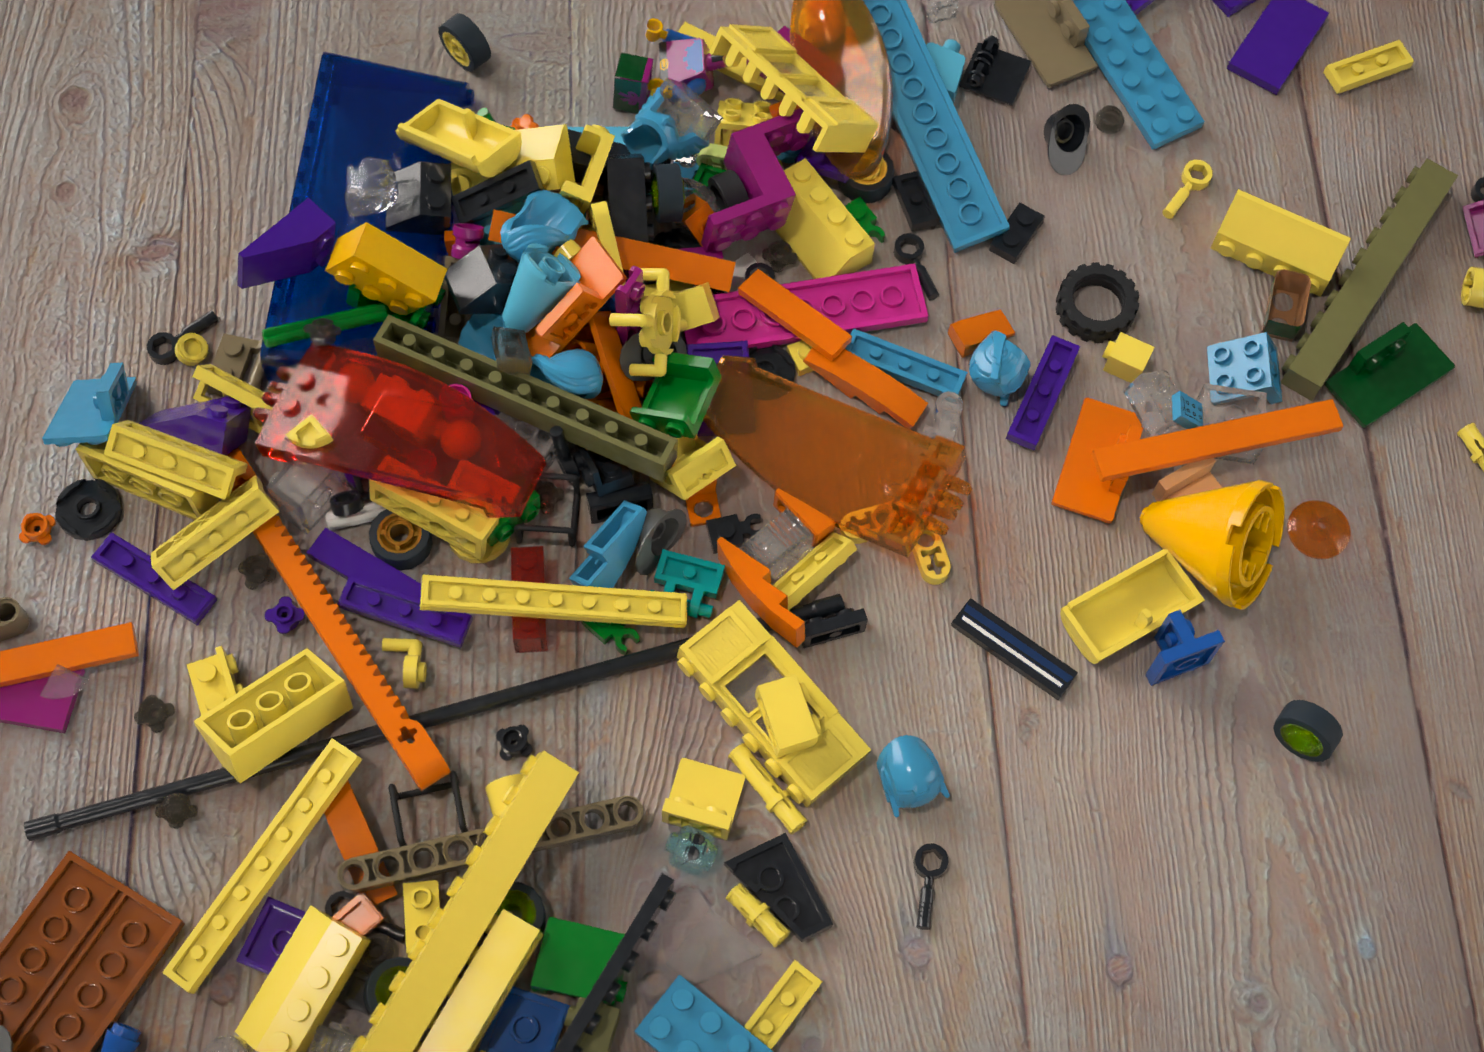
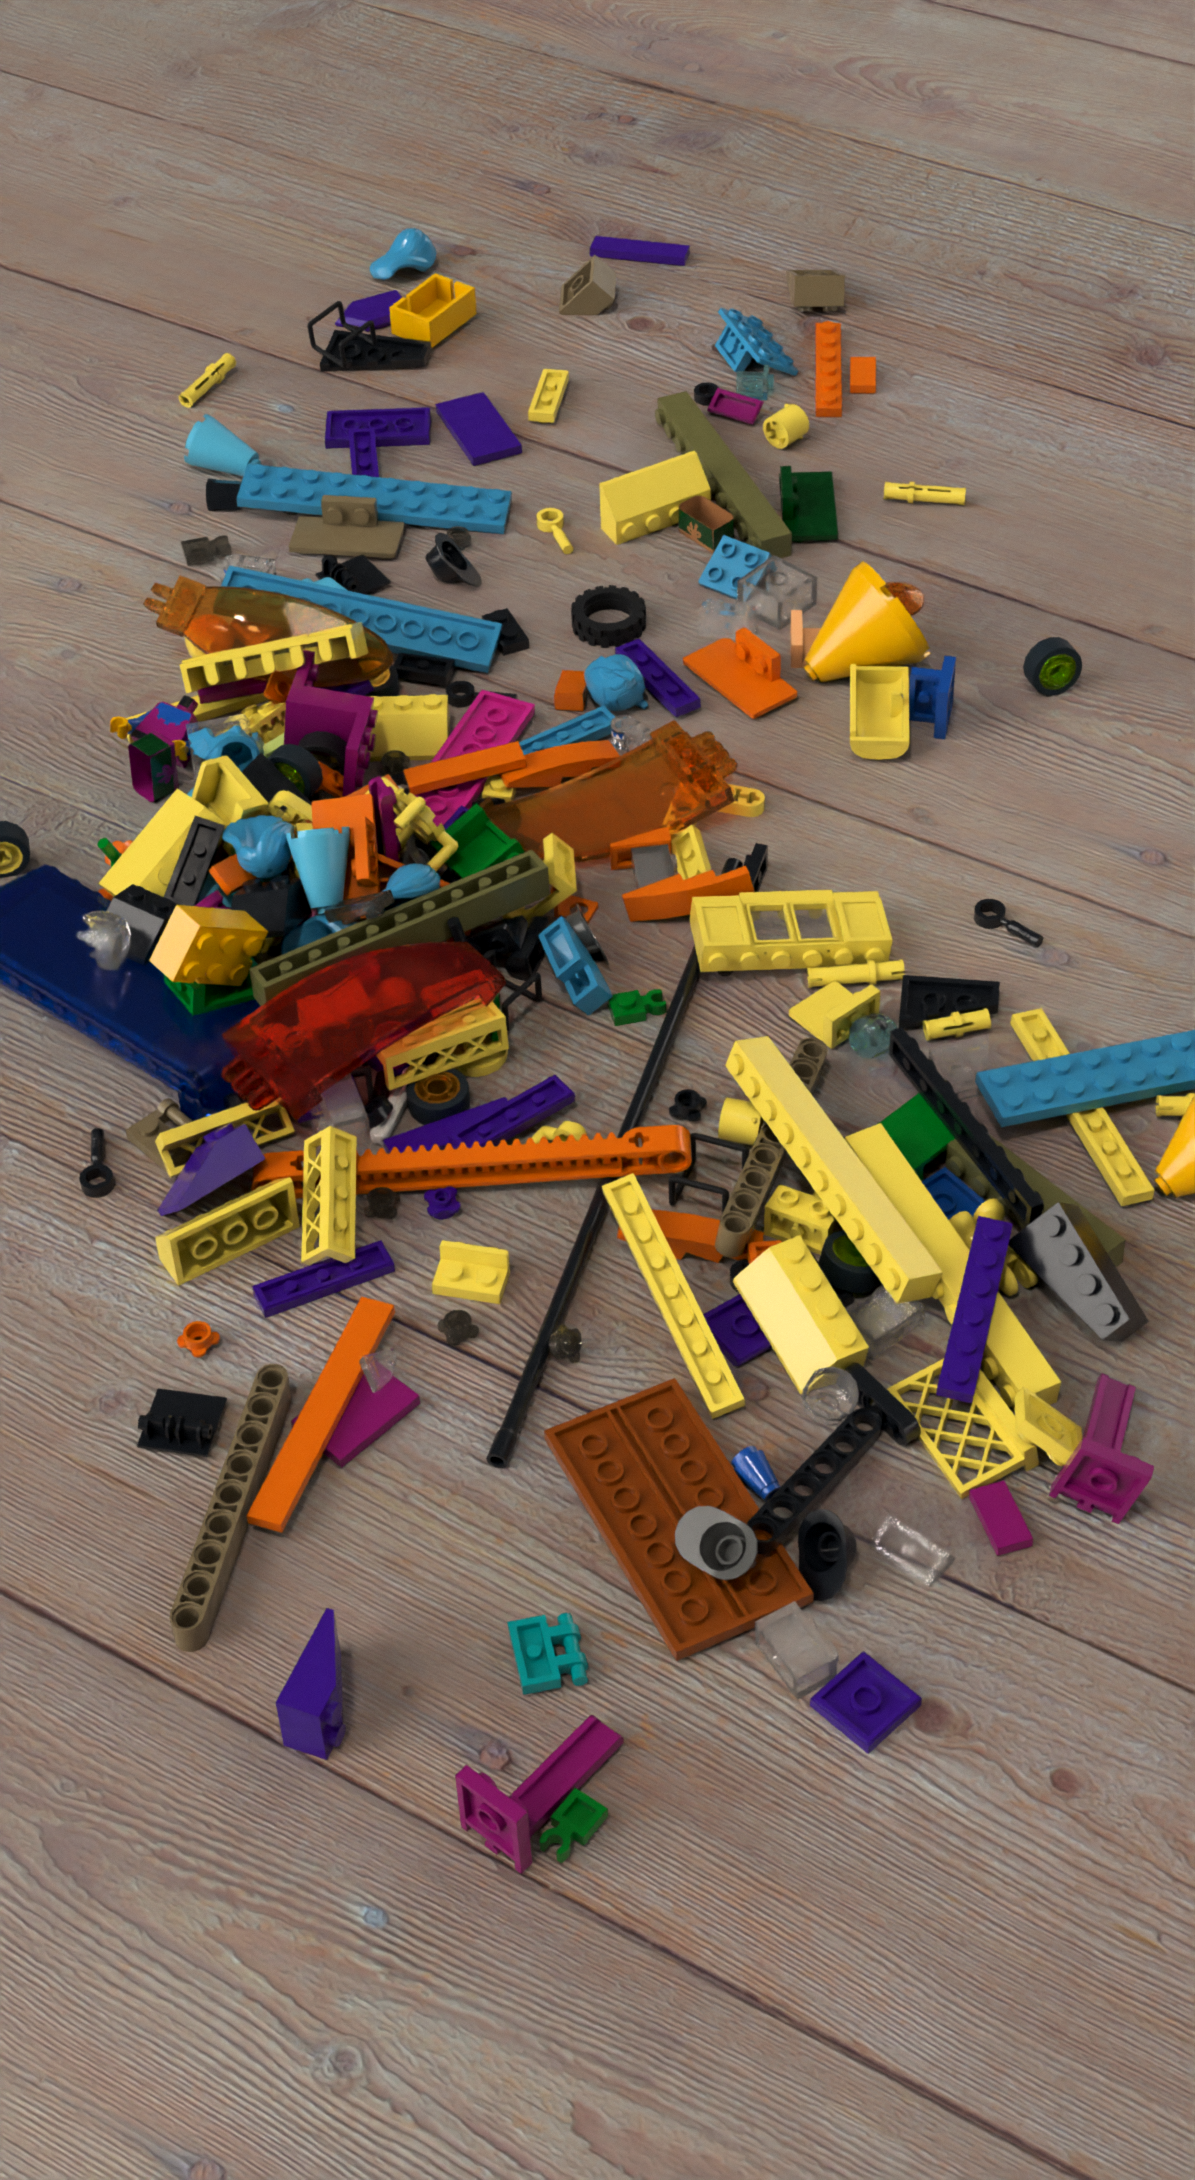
camera: 50 degrees left, 20 degrees down
(91, 408) = (132, 1224): dark azure bracket -> none
(96, 524) = (213, 1312): black tile -> none
(173, 458) = (244, 1177): light yellow fence -> none
(191, 349) = (119, 1158): light yellow tile -> none
(274, 714) = (538, 1230): light yellow slope -> none
(289, 247) = (122, 996): dark purple slope -> none
(309, 434) = (322, 1054): light yellow tile -> none
(322, 331) = (220, 1021): clear smoke plate -> none
(345, 320) = (207, 1028): green axle -> none
(462, 138) = (116, 863): light yellow container -> none
(529, 633) = (571, 1036): clear red brick -> none
(553, 601) = (593, 1007): light yellow tile -> none
(690, 575) = (635, 935): teal plate -> none
(731, 529) = (610, 902): black plate -> none
(787, 715) = (816, 909): light yellow brick -> none
(909, 773) = (915, 880): dark azure helmet -> none
(1014, 649) = (854, 791): black tile -> none
(1127, 357) = (672, 620): light yellow brick -> none
(1186, 411) = (754, 597): dark azure tile -> none
(1216, 440) = (790, 594): orange tile -> none

